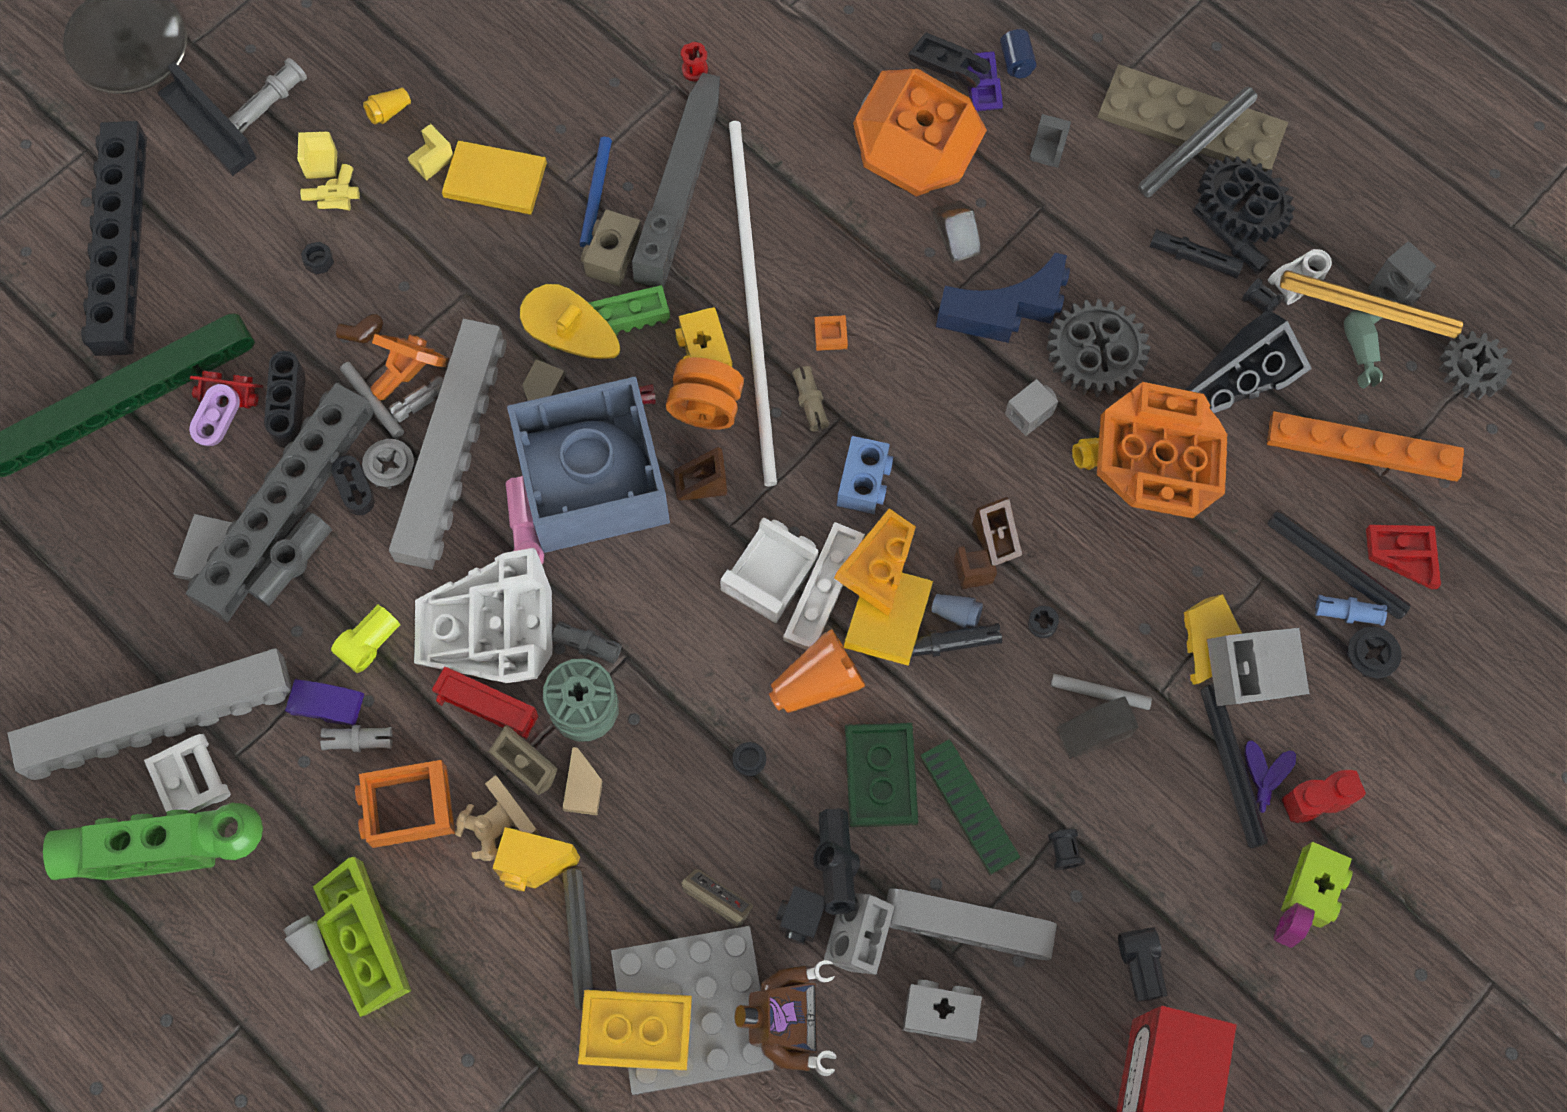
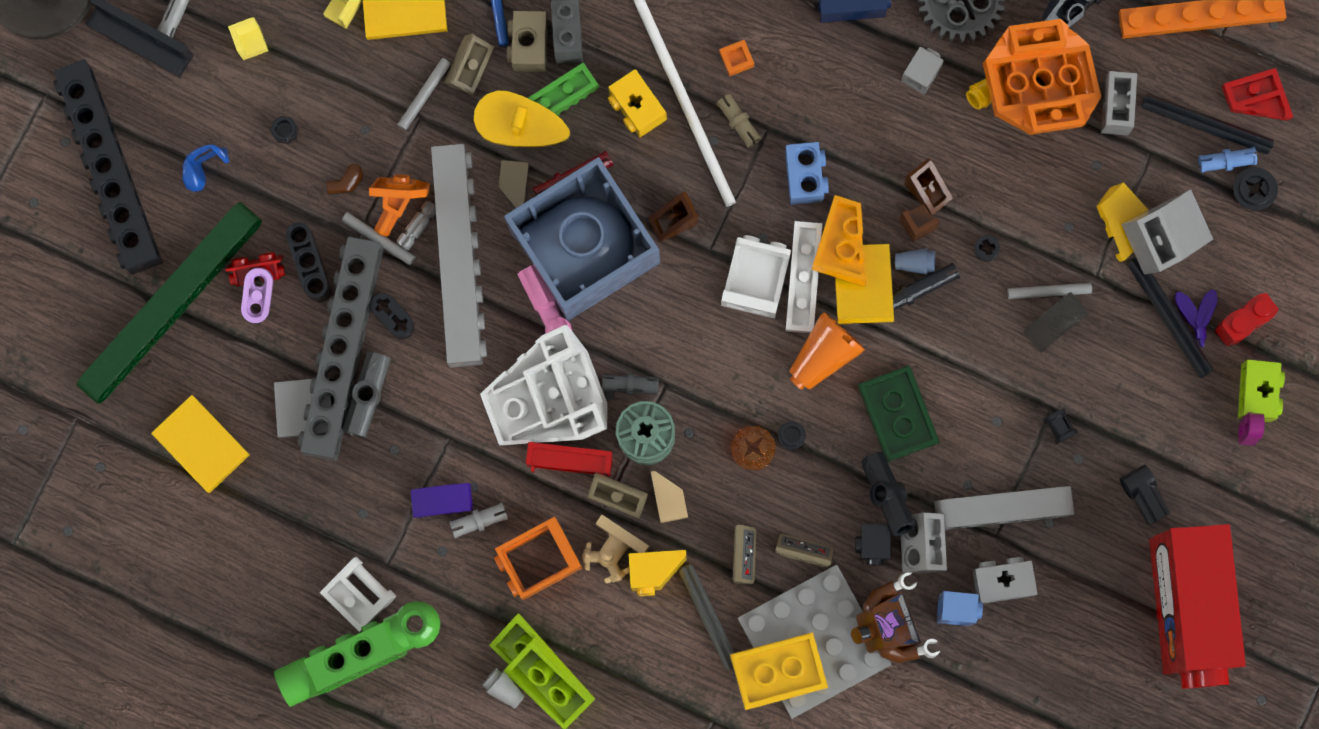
camera: 10 degrees left, 10 degrees up
(87, 555) = (200, 444): none -> yellow tile
(150, 714) = (309, 554): light grey brick -> none
(202, 269) = (193, 174): none -> blue piece
(335, 192) = (275, 65): light yellow piece -> none
(359, 646) = (452, 444): neon yellow piece -> none
(384, 451) = (406, 279): light grey gear -> none
(480, 268) = (424, 94): none -> light grey bar
(541, 253) = (469, 64): none -> dark tan slope
(645, 878) = (744, 554): none -> slope
(694, 773) = (753, 461): none -> clear orange gear
(705, 393) = (654, 147): orange wheel -> none
(876, 1026) = (958, 608): none -> medium blue brick
(969, 807) = (975, 416): dark green tile -> none
(1243, 508) = (1119, 103): none -> light grey brick

